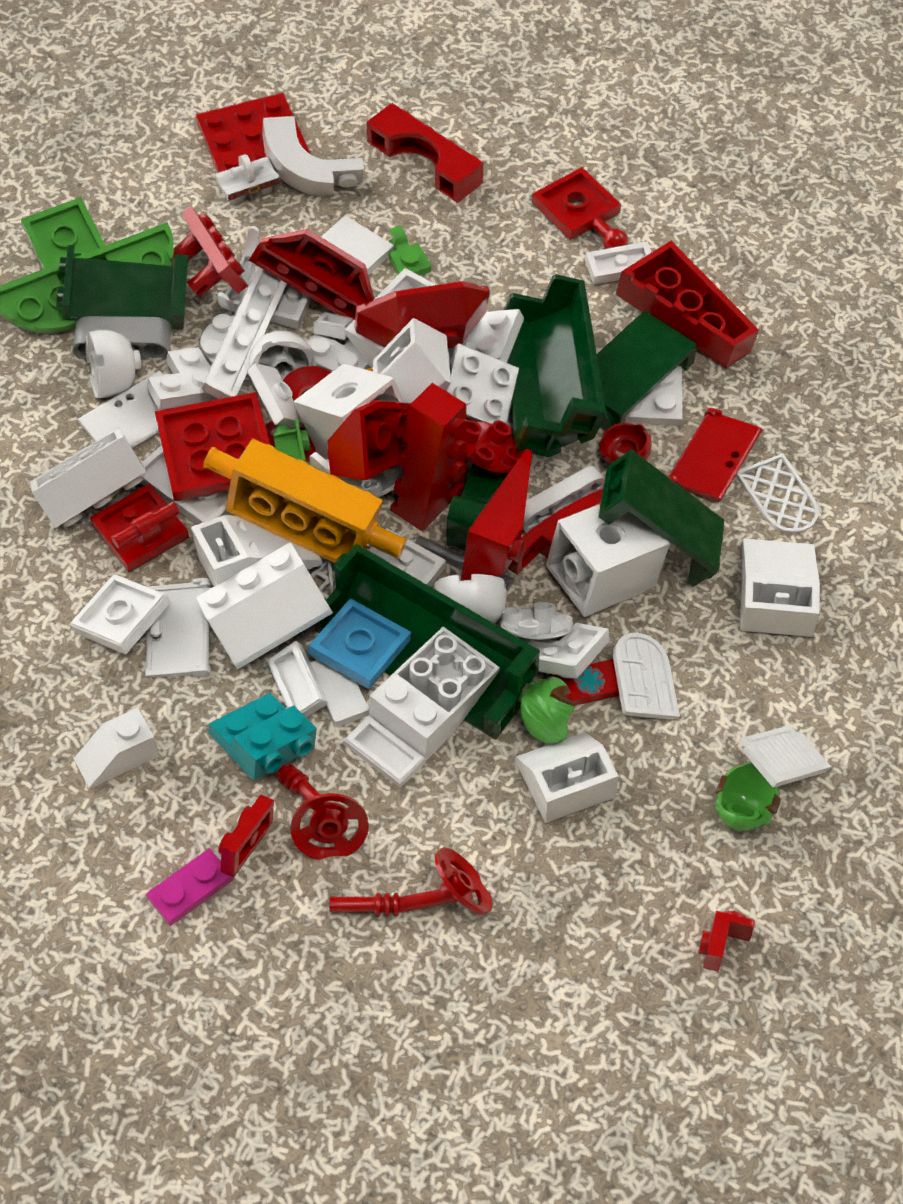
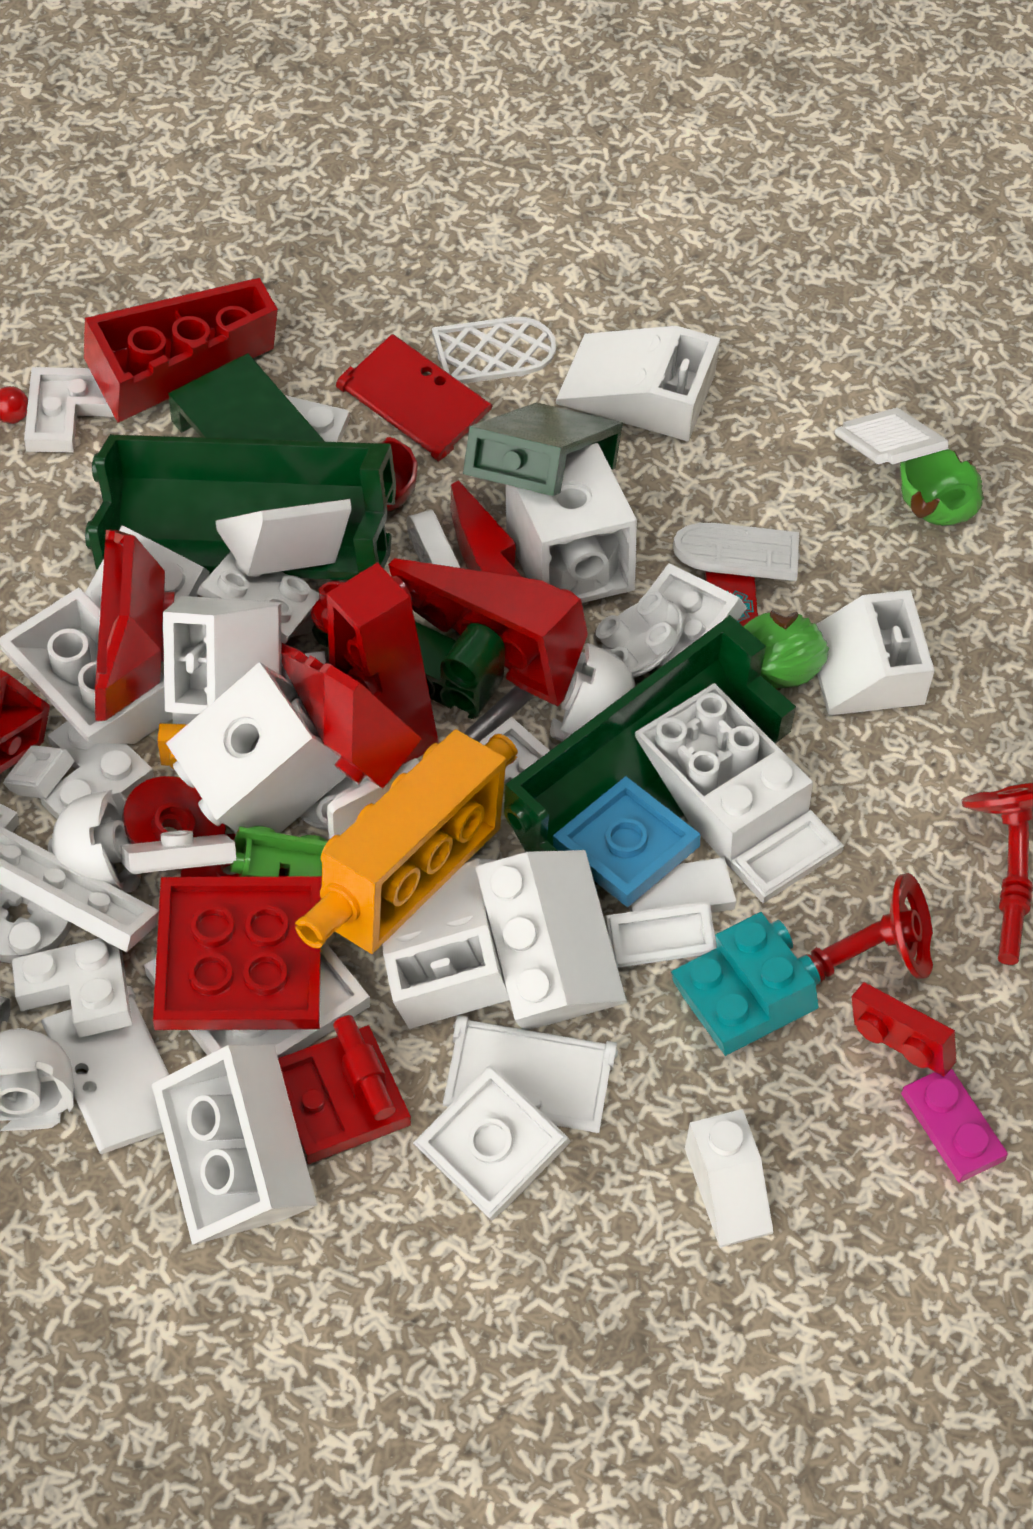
camera: 80 degrees left, 0 degrees up
(522, 381) = (286, 536): none -> white slope

